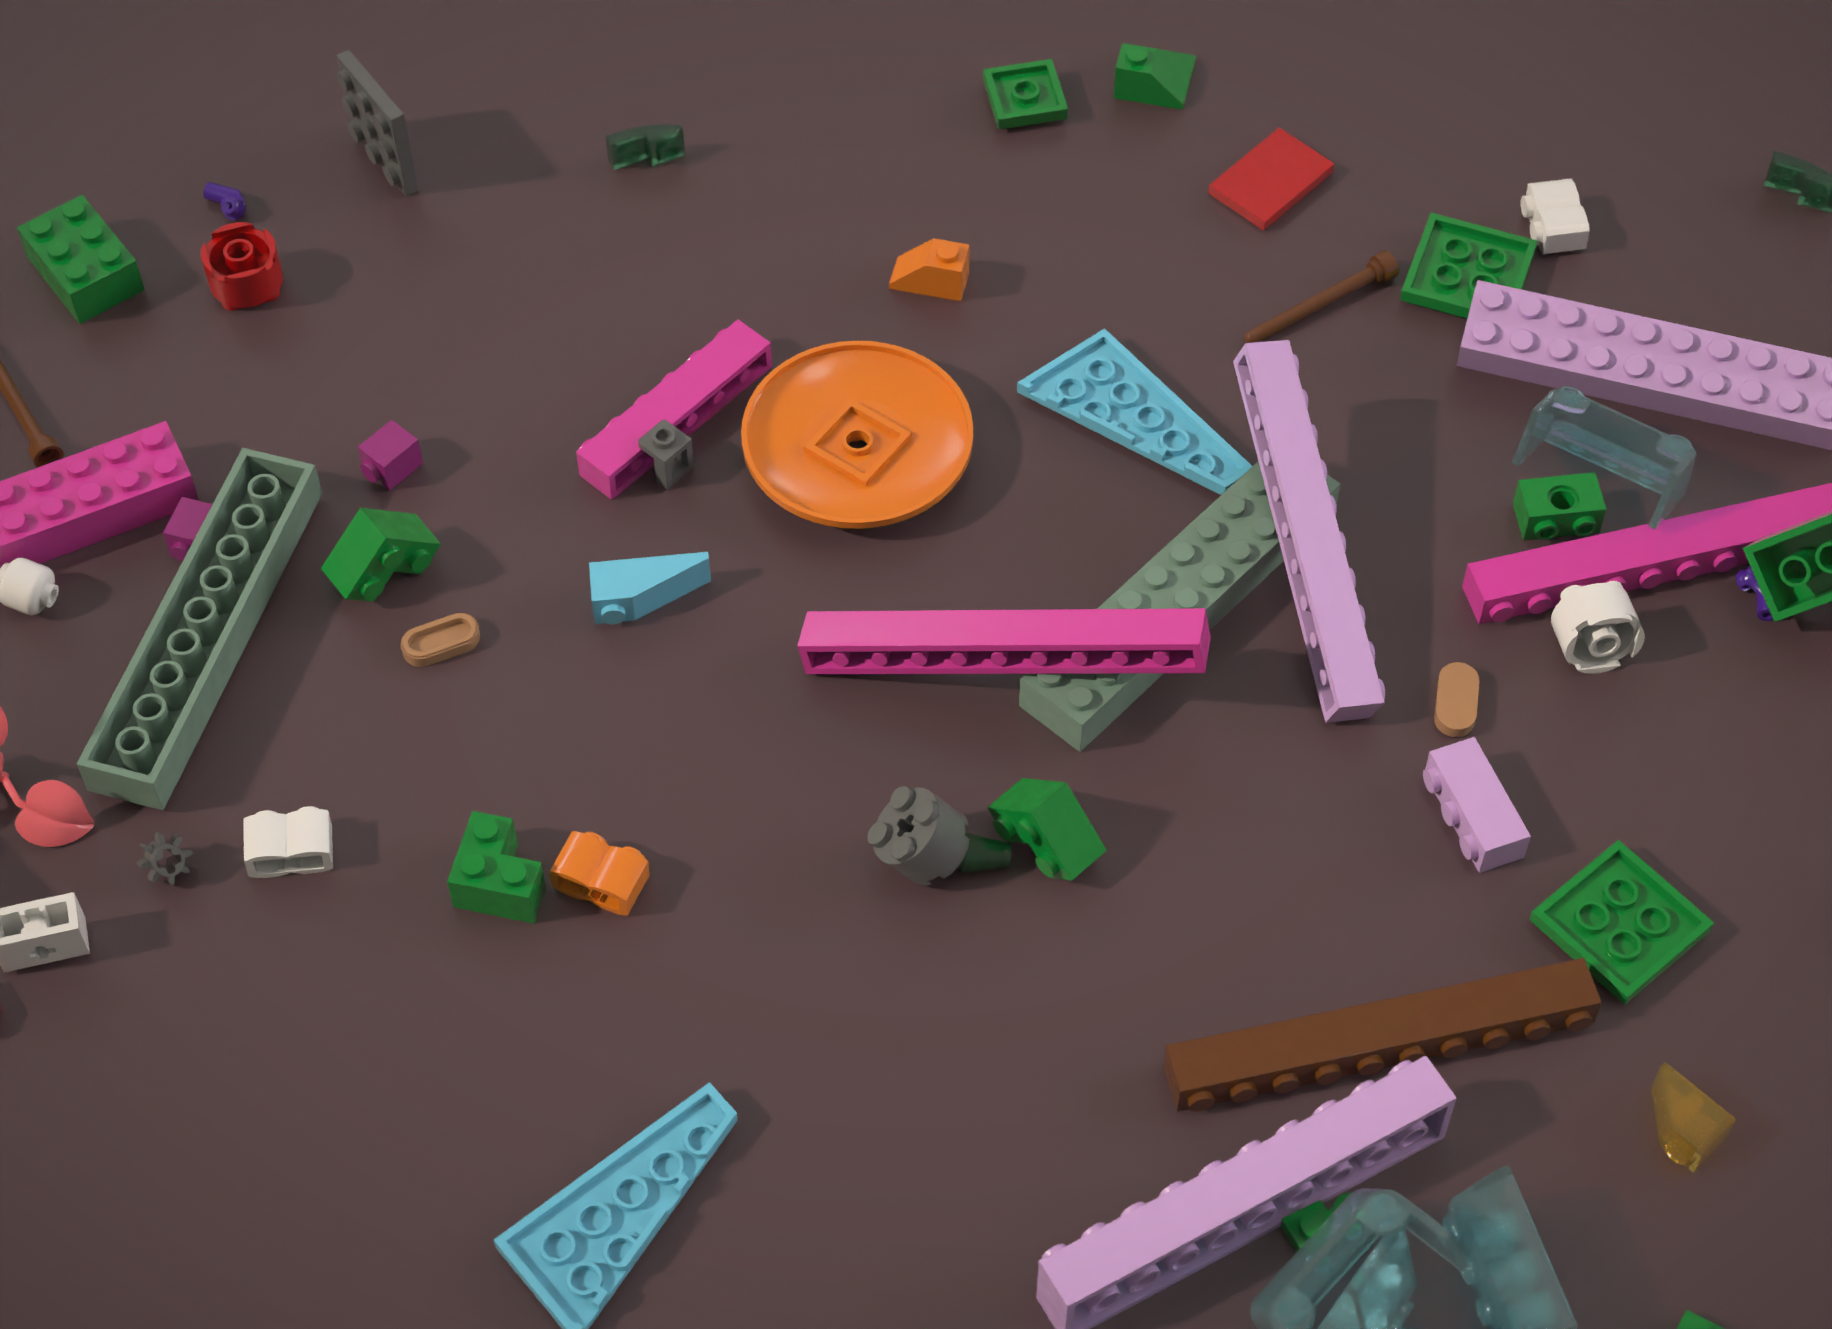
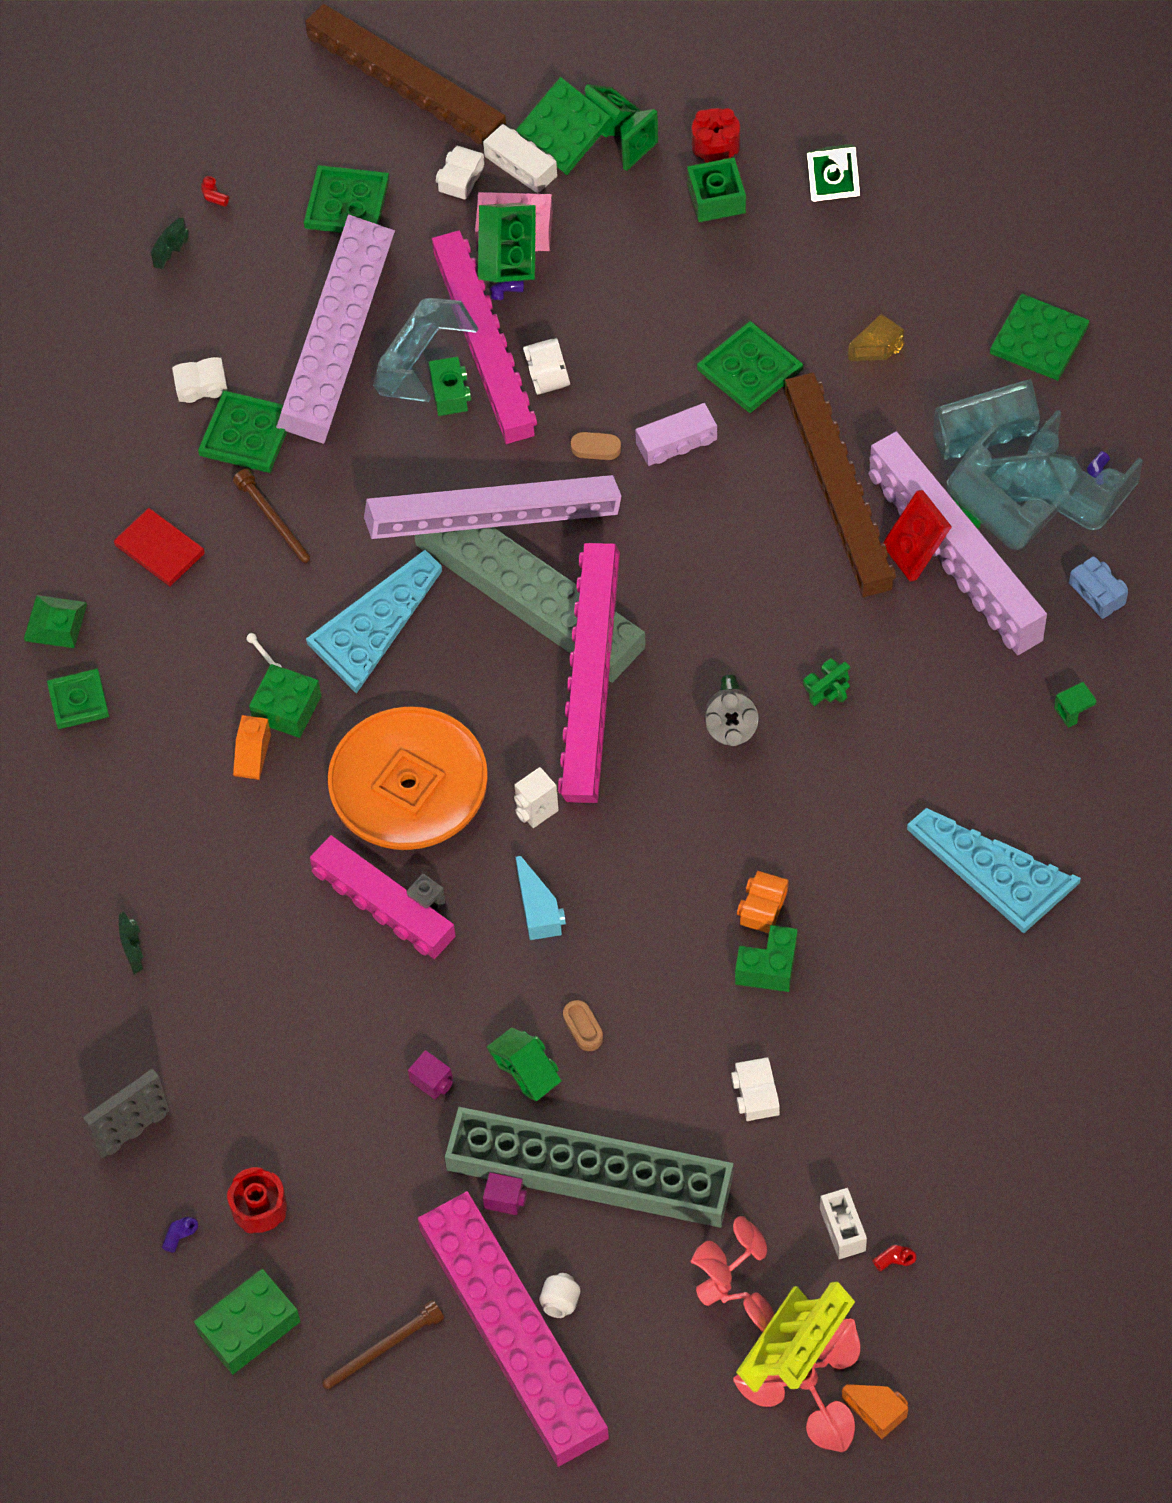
camera: 90 degrees left, 5 degrees up
(154, 852) = (776, 1160): dark grey gear -> none
(803, 577) = (536, 798): none -> white brick
(982, 997) = (831, 686): none -> green hips
(1001, 304) = (286, 700): none -> green brick
(1051, 823) = (712, 651): green brick -> none
(1066, 305) = (251, 638): none -> white hinge
(1252, 1125) = (916, 535): none -> red tile

